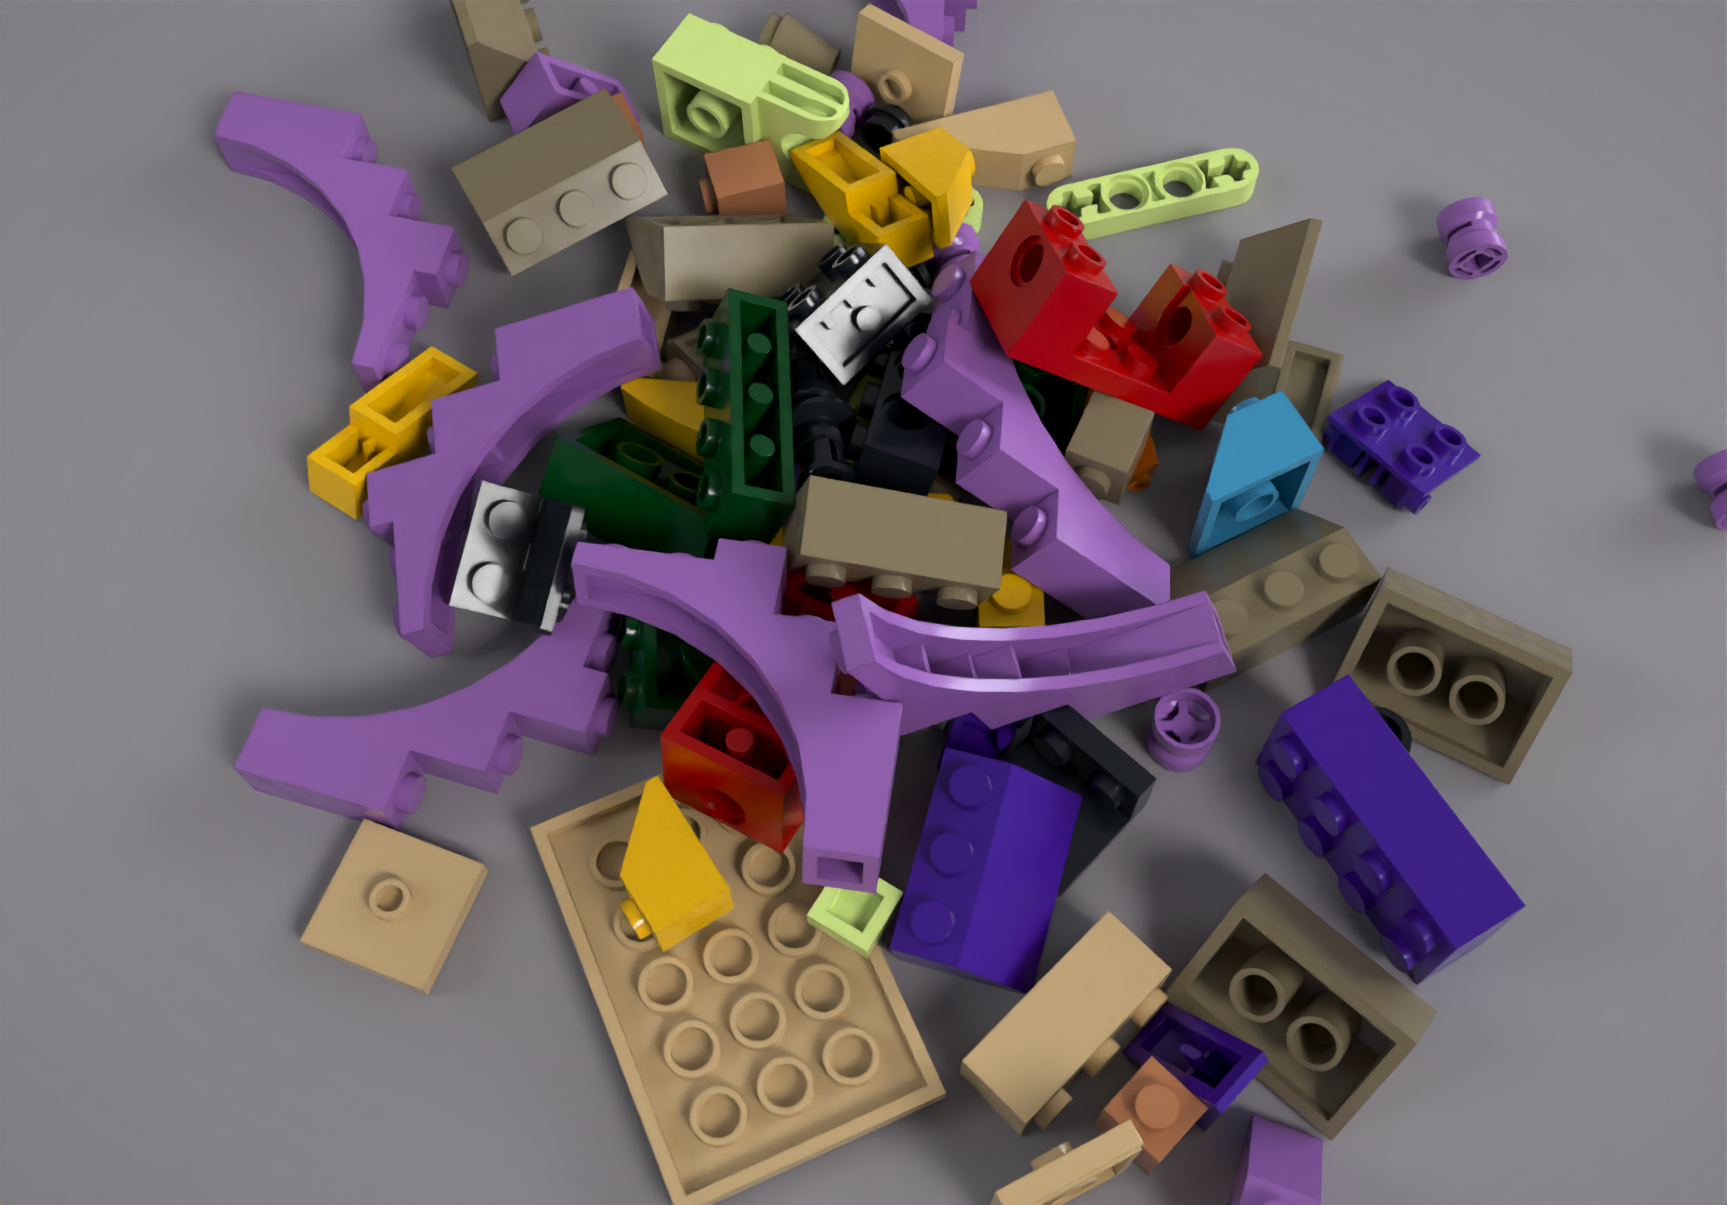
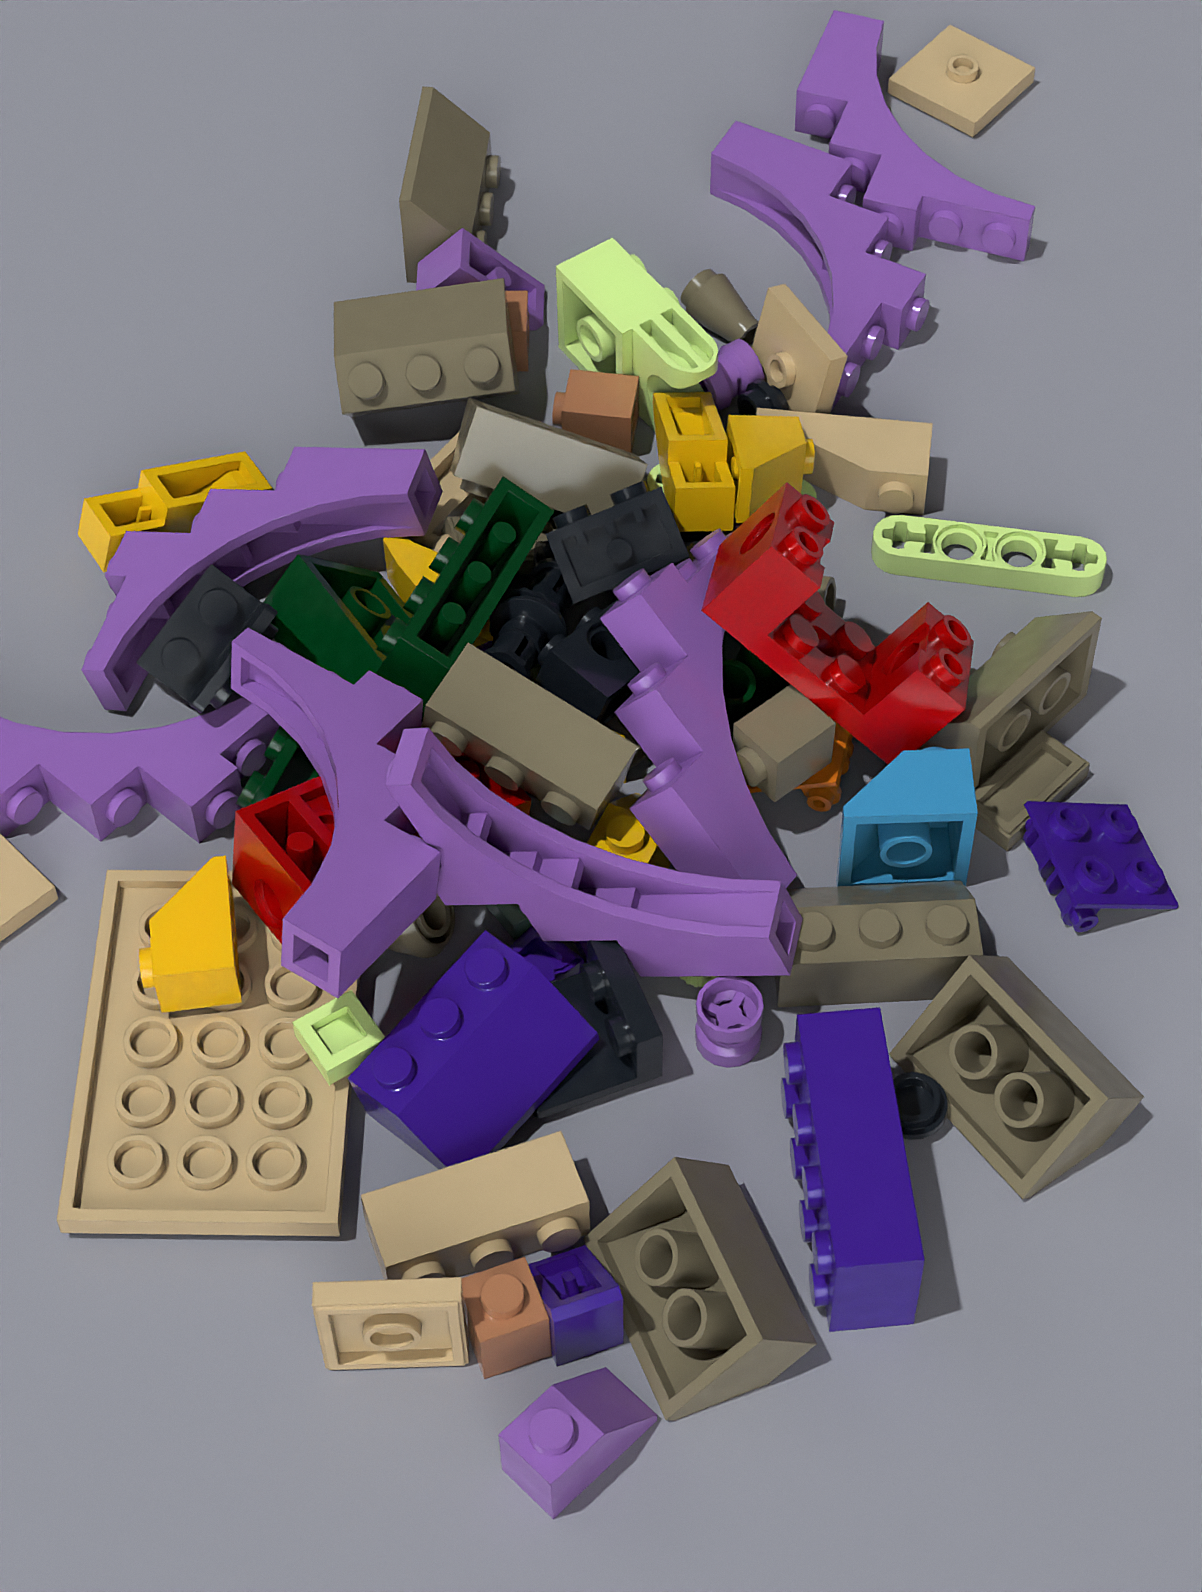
camera: 25 degrees right, 10 degrees down
(332, 165) = (258, 364): medium lavender arch -> none

